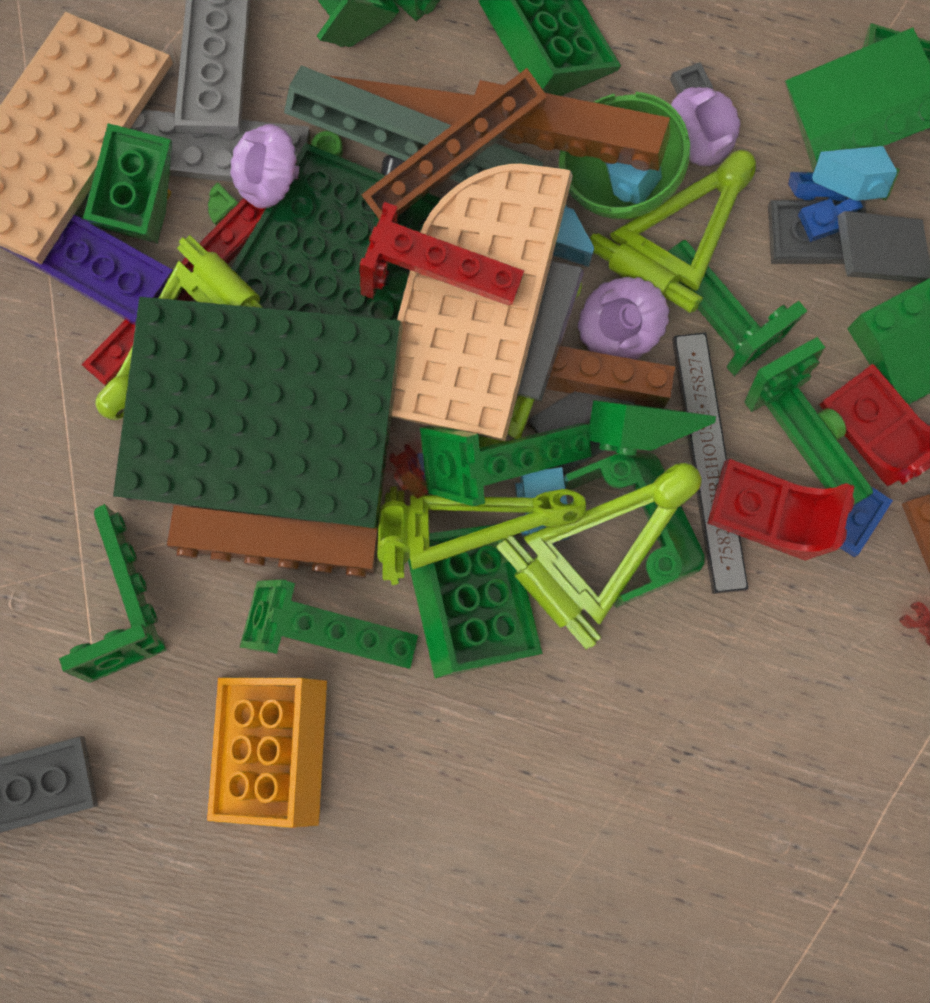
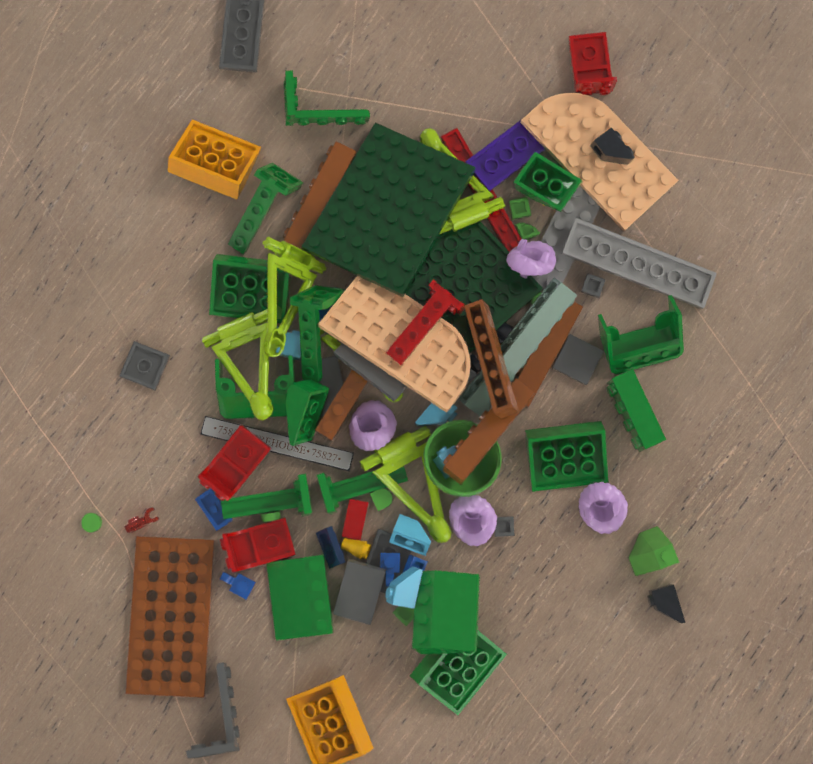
camera: 110 degrees right, 5 degrees up
(39, 103) = (611, 148): none -> black slope
(186, 223) = (519, 208): none -> bright green tile
(273, 79) = (593, 285): none -> dark grey plate
(397, 60) = (578, 359): none -> dark grey tile
(408, 472) = (328, 277): clear red plate -> none
(672, 730) = (144, 365): none -> dark grey tile
(728, 269) = (381, 498): none -> bright green tile
(765, 298) = (355, 519): none -> red tile
(767, 204) = (410, 535): none -> medium azure slope
(818, 279) = (356, 547): none -> yellow cone
(837, 314) = (330, 547): none -> dark blue plate

